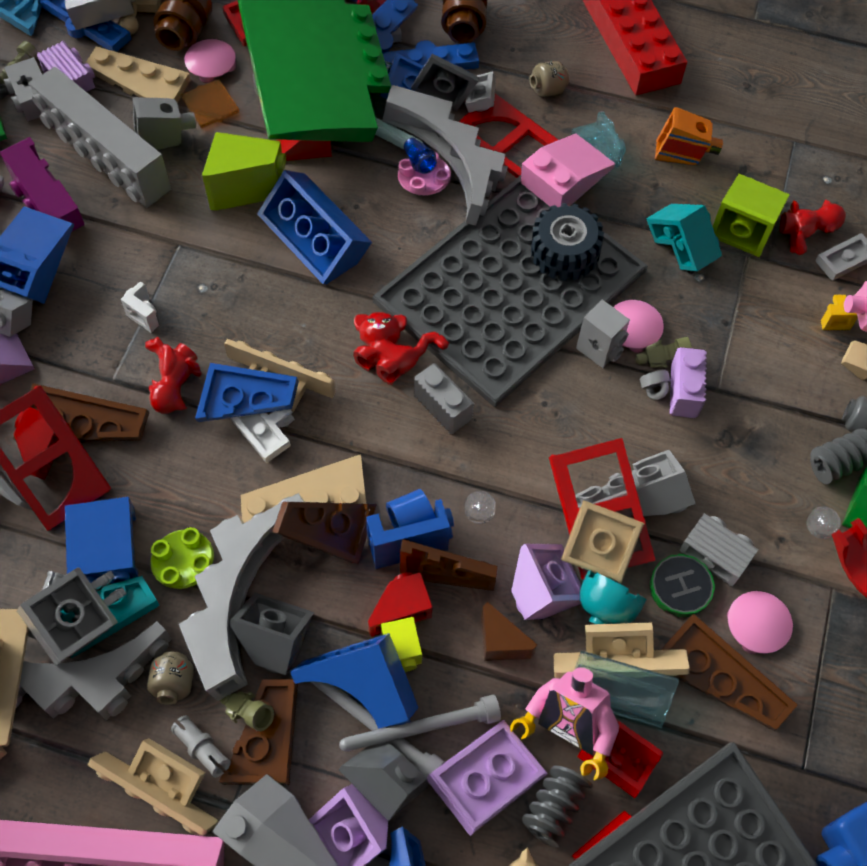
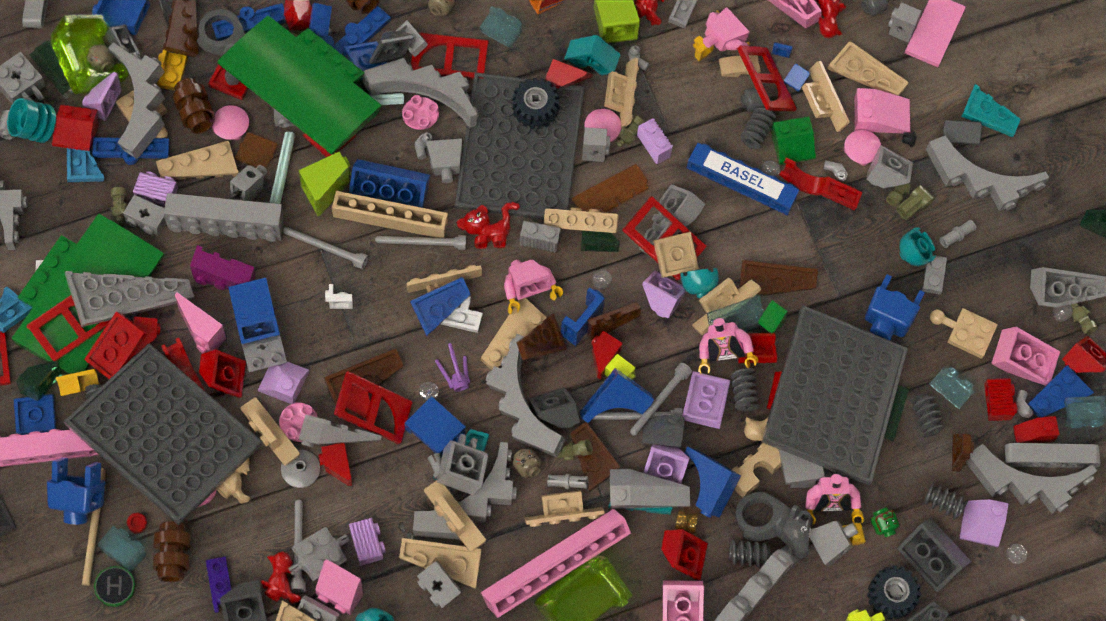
camera: 40 degrees left, 5 degrees up
(139, 489) = (427, 390): none -> clear tile
(175, 369) = (389, 317): red animal -> none
(180, 558) = (480, 408): lime dish -> none
(186, 503) = (458, 381): none -> medium lavender plant
(203, 145) = (282, 168): none -> light aqua axle
(206, 283) = (360, 260): none -> light grey piece
(285, 255) = (390, 214): none -> tan brick
(339, 340) = (458, 242): none -> light grey piece
(380, 439) = (527, 280): none -> bright pink torso
(395, 207) = (420, 145): none -> light grey arm
(408, 236) = (445, 158): none -> light grey torso
(409, 509) = (574, 305): blue piece -> none
(420, 156) = (414, 104): clear blue cone -> none
(502, 638) = (663, 334): reddish brown slope -> none
(509, 412) = (580, 220): none -> tan bracket
(514, 450) = (599, 242): none -> clear green slope
(564, 170) = (500, 58): bright pink slope -> none
(592, 407) = (616, 187): none -> clear orange windscreen
(632, 234) = (565, 75): none -> red slope
(653, 380) = (636, 151): light grey tile -> none
(676, 727) = (773, 317): none -> green slope
(682, 585) = (726, 249): black tile -> none
(688, 298) = (621, 92): none -> tan bracket
(719, 548) = (731, 219): light grey brick -> none
(739, 274) = (634, 53): none -> light grey arm
(760, 622) = (774, 242): bright pink dish -> none
(777, 509) = (743, 178): none -> blue brick

